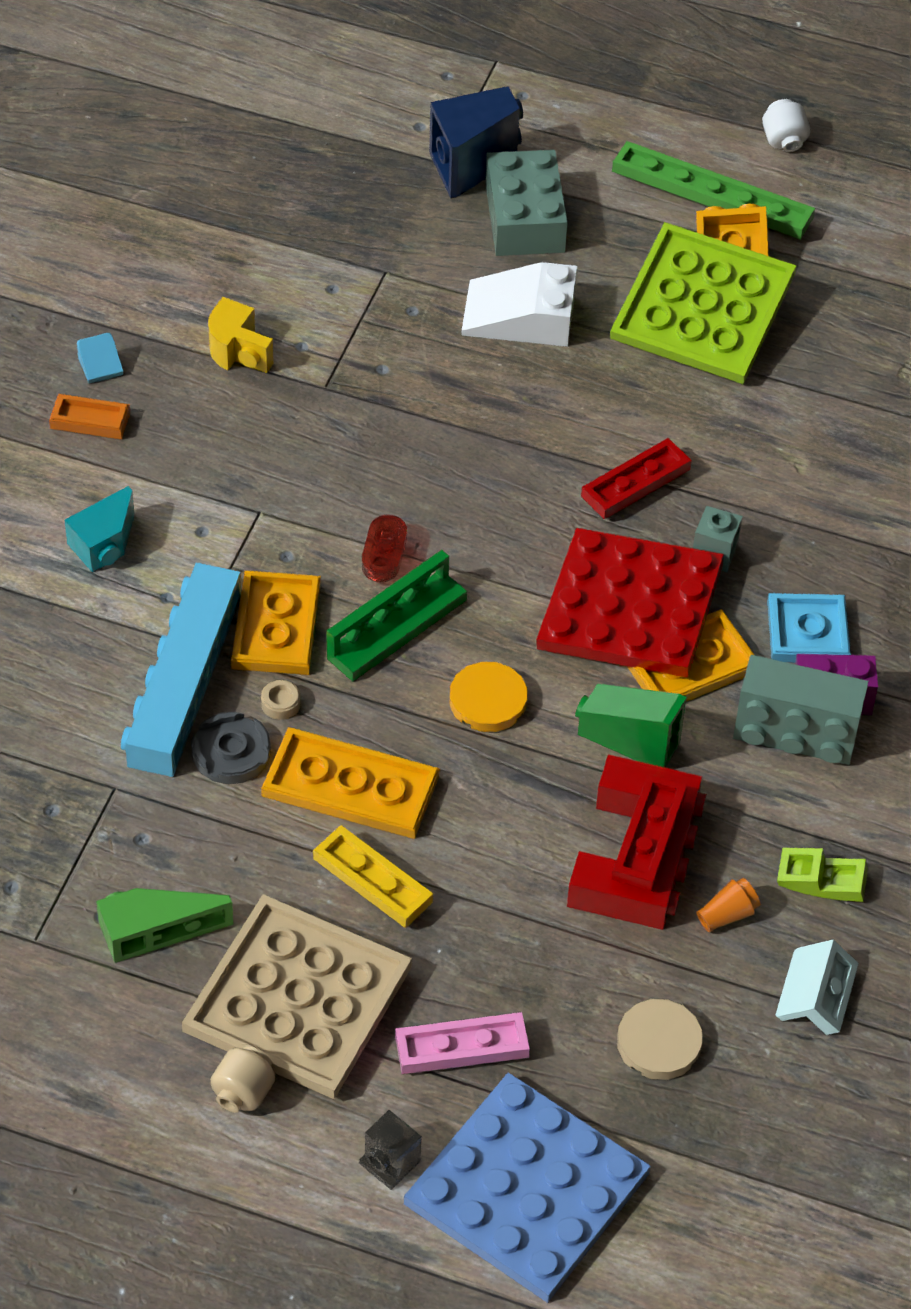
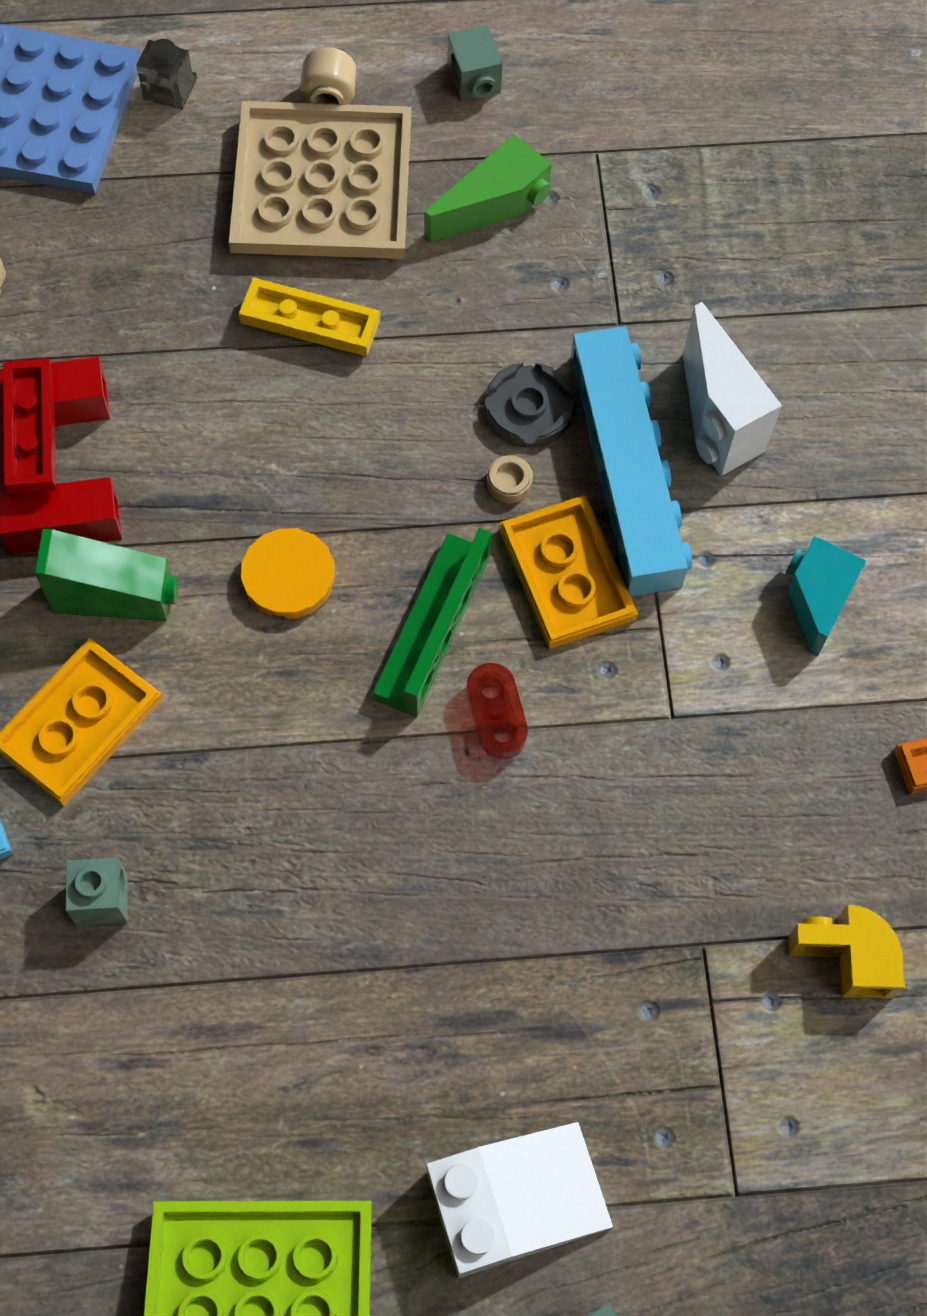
camera: 155 degrees right, 15 degrees up
(89, 660) = (727, 397): none -> white slope
(96, 1048) = (474, 62): none -> sand green brick
(350, 782) = (386, 416): light orange tile -> none
(462, 1043) = (146, 193): bright pink plate -> none
(630, 602) = (173, 762): red plate -> none
(636, 478) = (237, 957): red plate -> none

